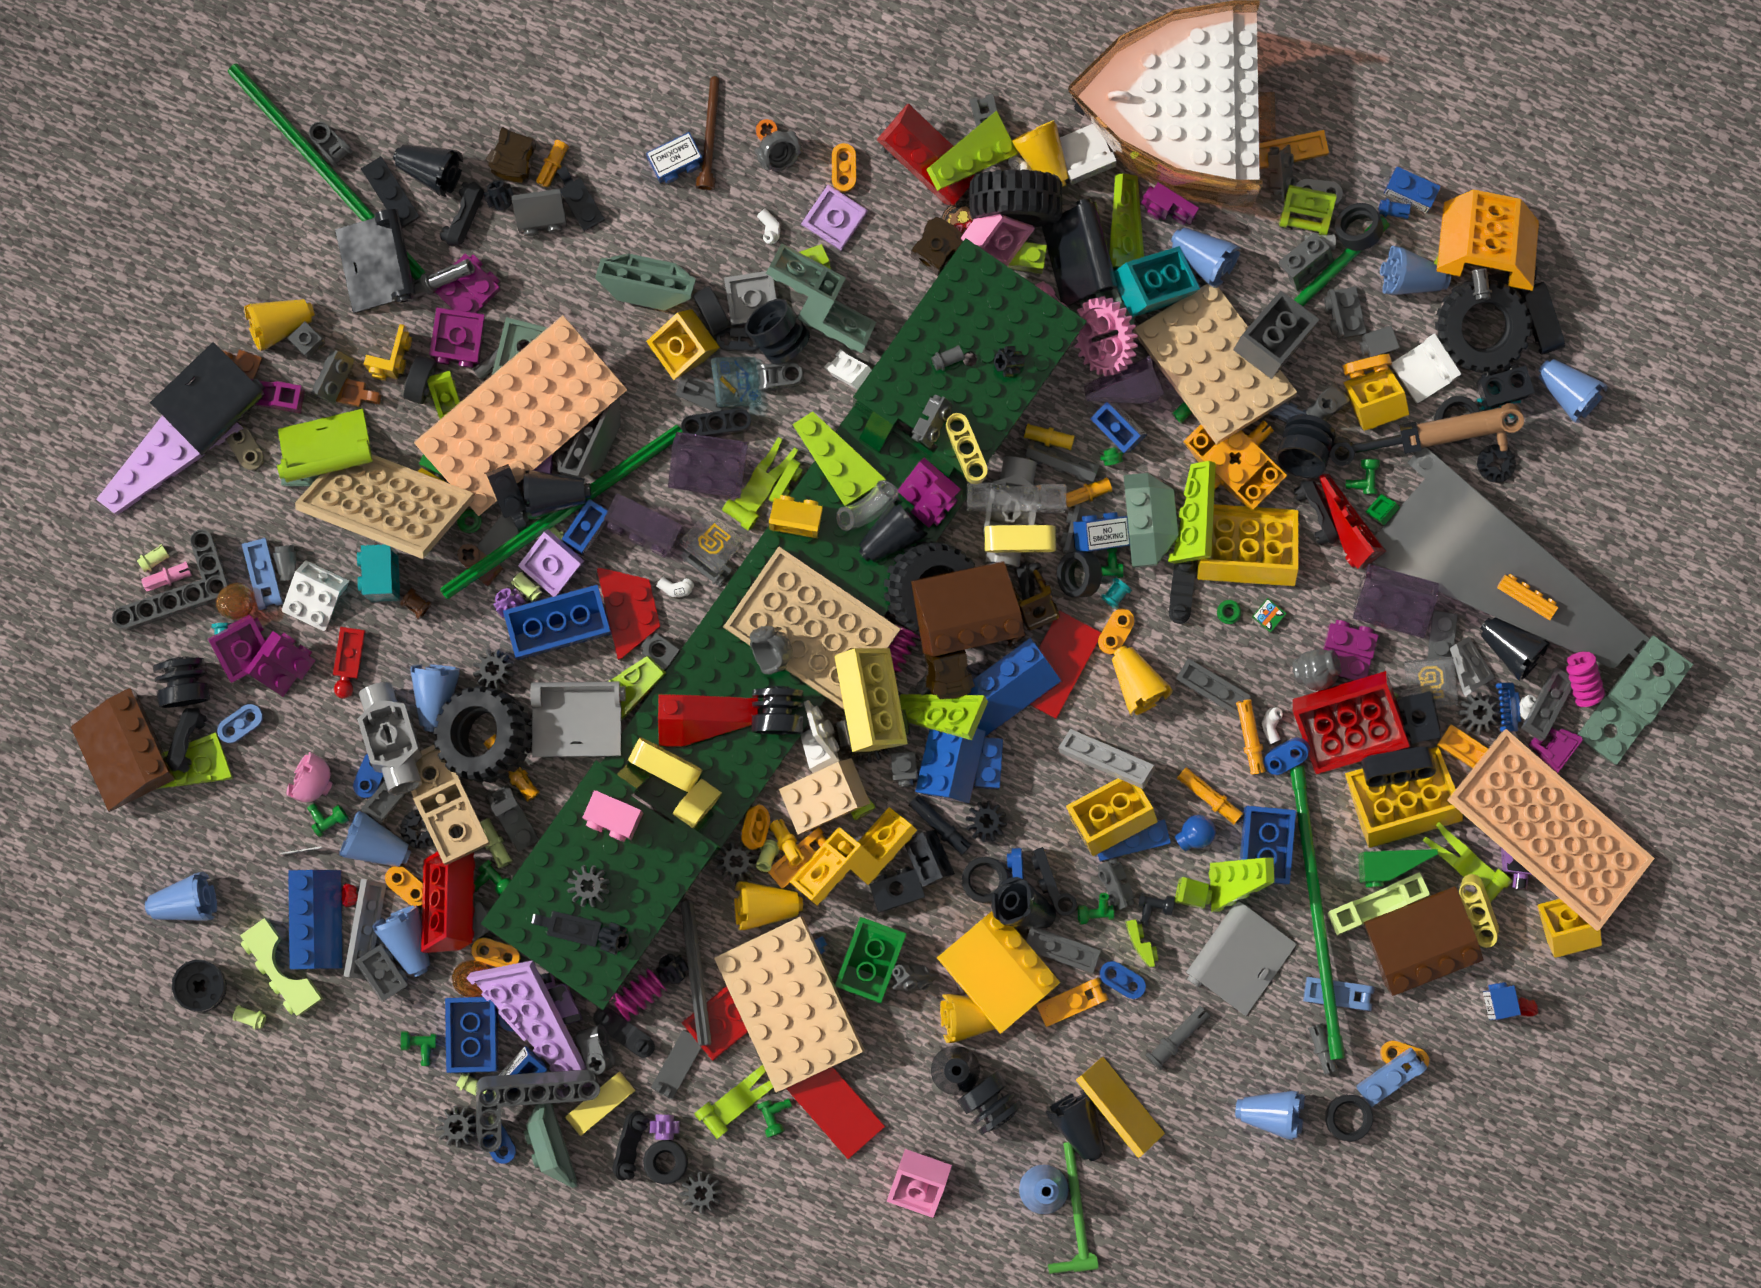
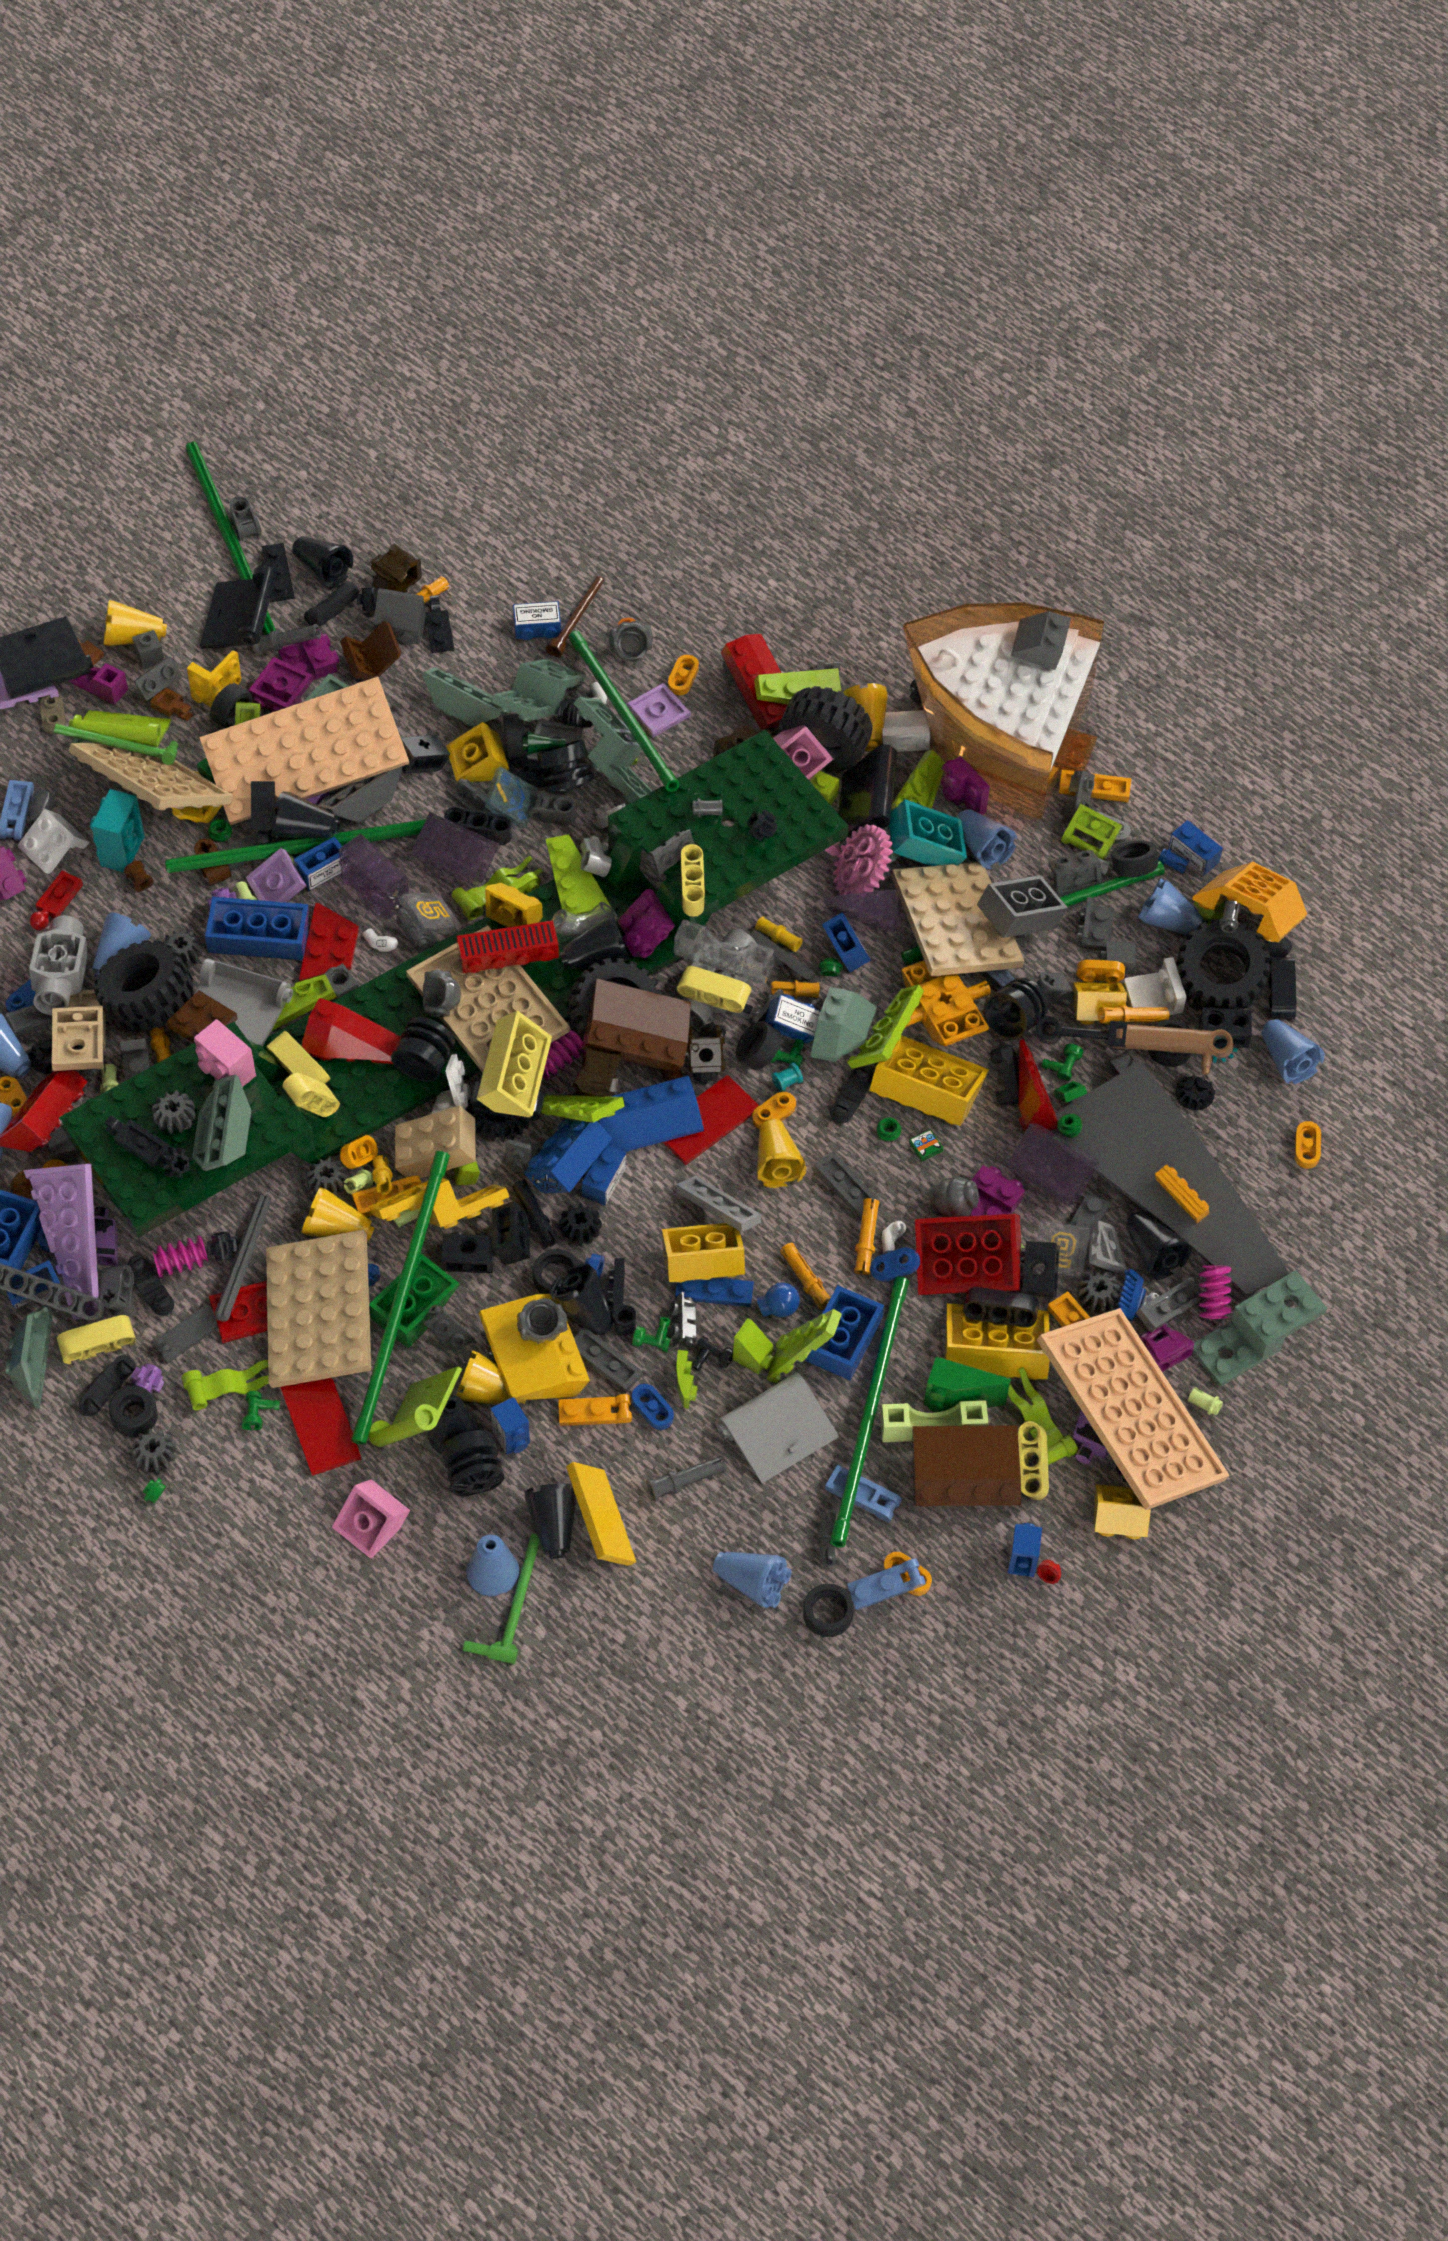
camera: 20 degrees right, 25 degrees down
(384, 465) = (167, 755): none -> bright green bar
(529, 262) = (373, 655): none -> reddish brown bracket
(554, 751) = (198, 1014): none -> reddish brown plate
(631, 362) = (424, 754): none -> black brick
(641, 889) = (222, 1125): none -> sand green wedge
(715, 251) = (538, 689): none -> sand green bracket
(718, 1229) = (154, 1490): none -> green plate
(740, 319) = (536, 743): none -> dark green cone
(758, 257) = (569, 715): none -> black gear
(810, 569) = (507, 947): none -> red brick
(851, 436) = (593, 857): none -> light grey piece
(877, 1099) = (364, 1421): none -> green piece
(892, 333) = (665, 774): none -> green piece
(924, 1076) = (418, 1410): none -> lime door
(1002, 954) = (541, 1321): none -> dark grey hair
(1009, 1054) = (510, 1426): none -> blue brick
(1204, 45) = (1041, 639): none -> dark grey slope
(1404, 551) = (1070, 1130): none -> green plate
(1408, 414) = (1129, 1014): none -> light orange pin
(1608, 787) = (1205, 1401): none -> yellowish green pin
(1618, 483) = (1307, 1146): none -> light orange plate

